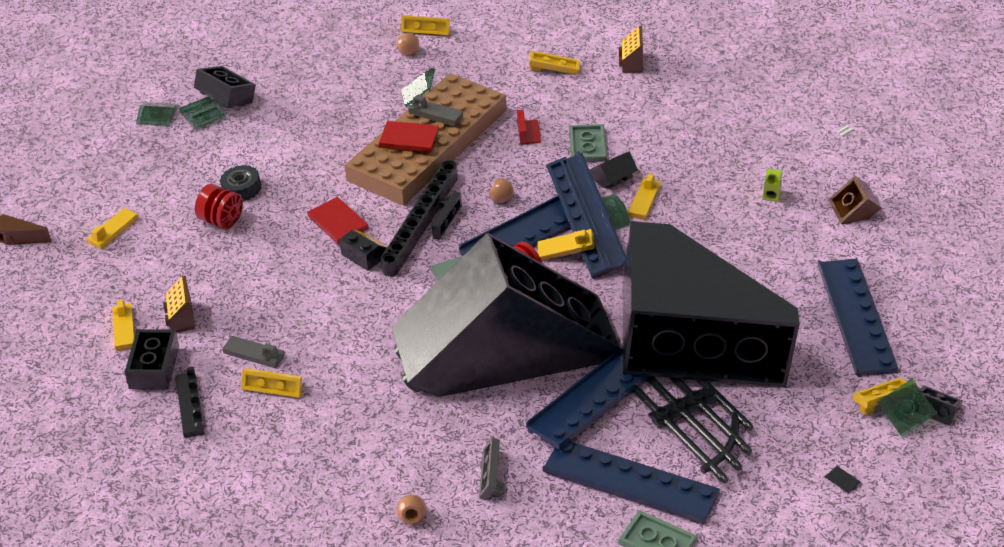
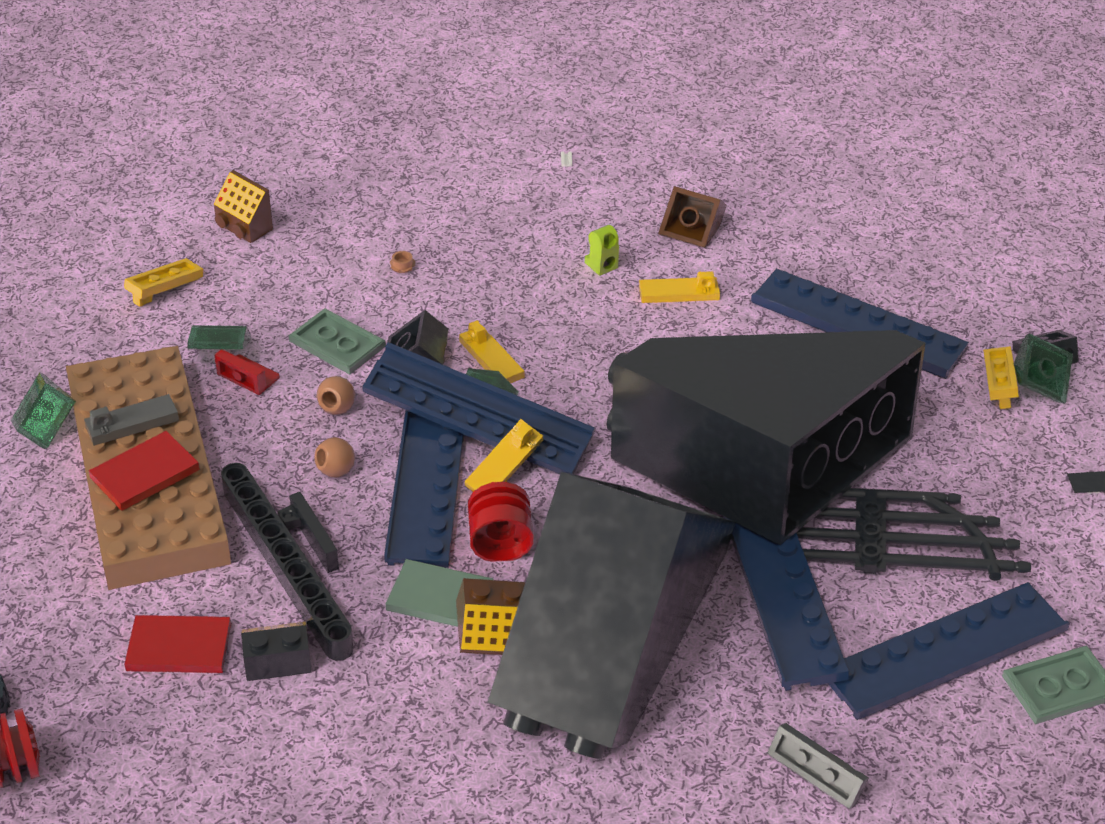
camera: 55 degrees left, 0 degrees up
(532, 105) = (218, 337): none -> clear green slope
(539, 162) = (335, 395): none -> nougat piece
(672, 126) = (402, 262): none -> nougat plate
(788, 233) = (701, 288): none -> yellow hinge

